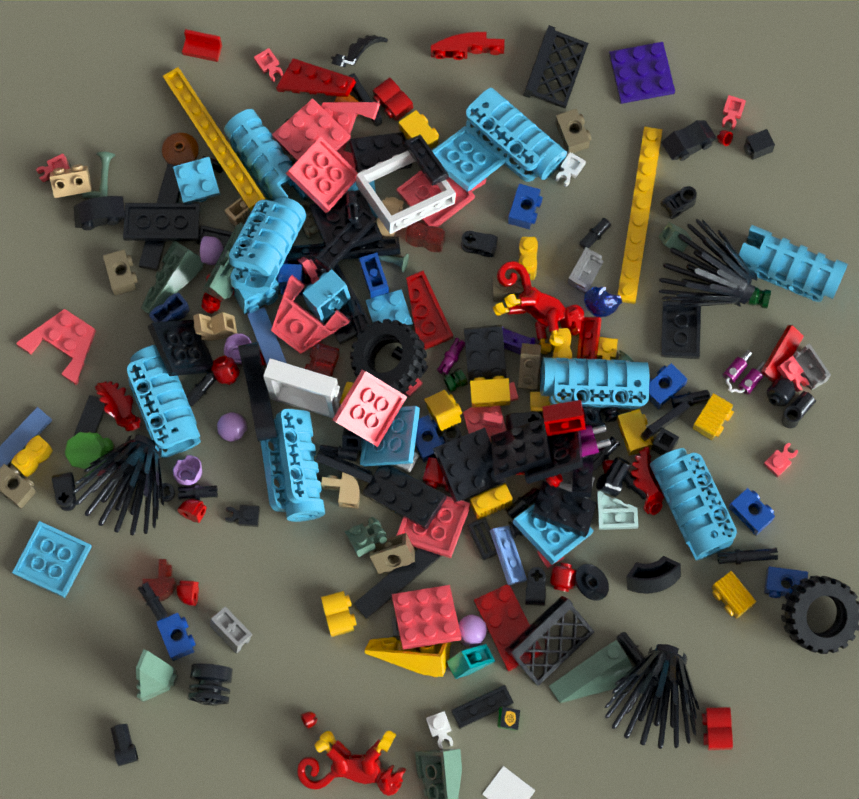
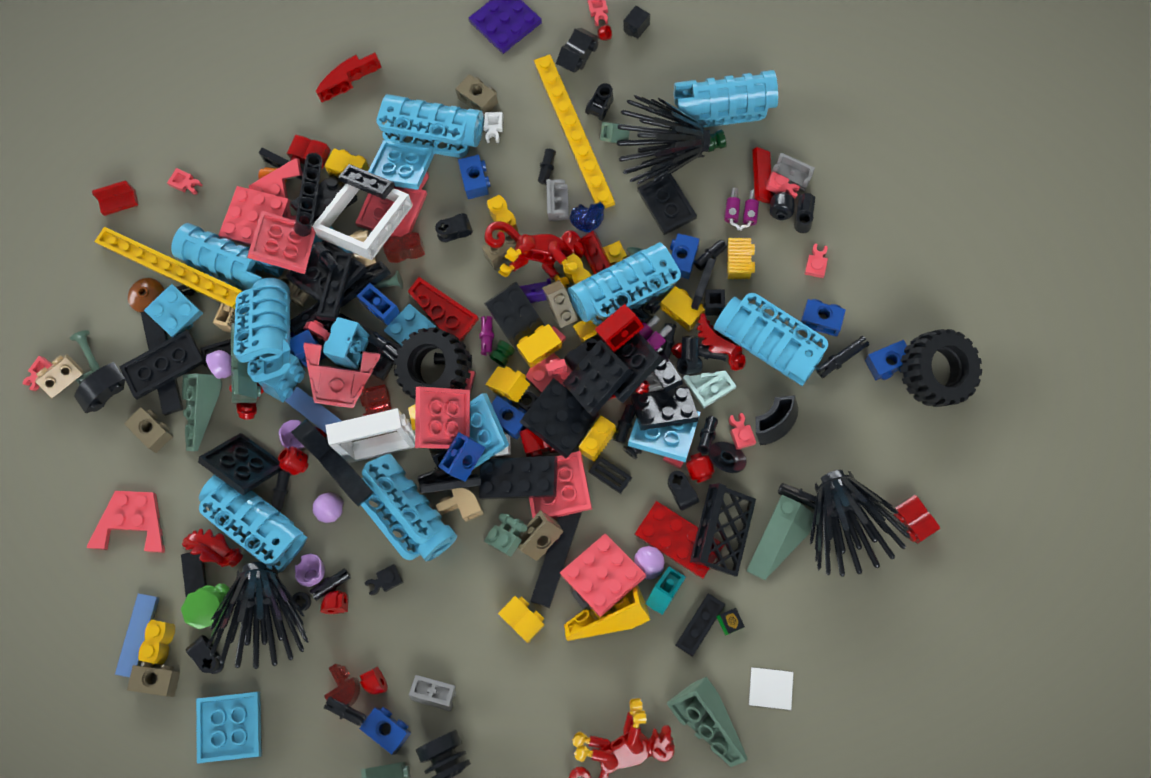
camera: 25 degrees left, 0 degrees up
(173, 309) = (214, 433): dark blue brick -> none
(214, 327) = (262, 429): tan brick -> none
(309, 719) = (553, 732): red hinge -> none
(314, 79) = (229, 172): red wing -> none
(356, 49) = (253, 130): black plant -> none
(367, 449) = (461, 457): none -> blue brick
(374, 136) = (308, 194): none -> black beam
(440, 727) = (673, 667): white plate -> none
(508, 555) = (640, 476): light blue tile -> none
(543, 58) = (418, 60): black fence -> none
(586, 553) = (707, 434): none -> black pin
(617, 570) = (741, 434): none -> coral plate
(733, 595) = (853, 397): yellow brick -> none

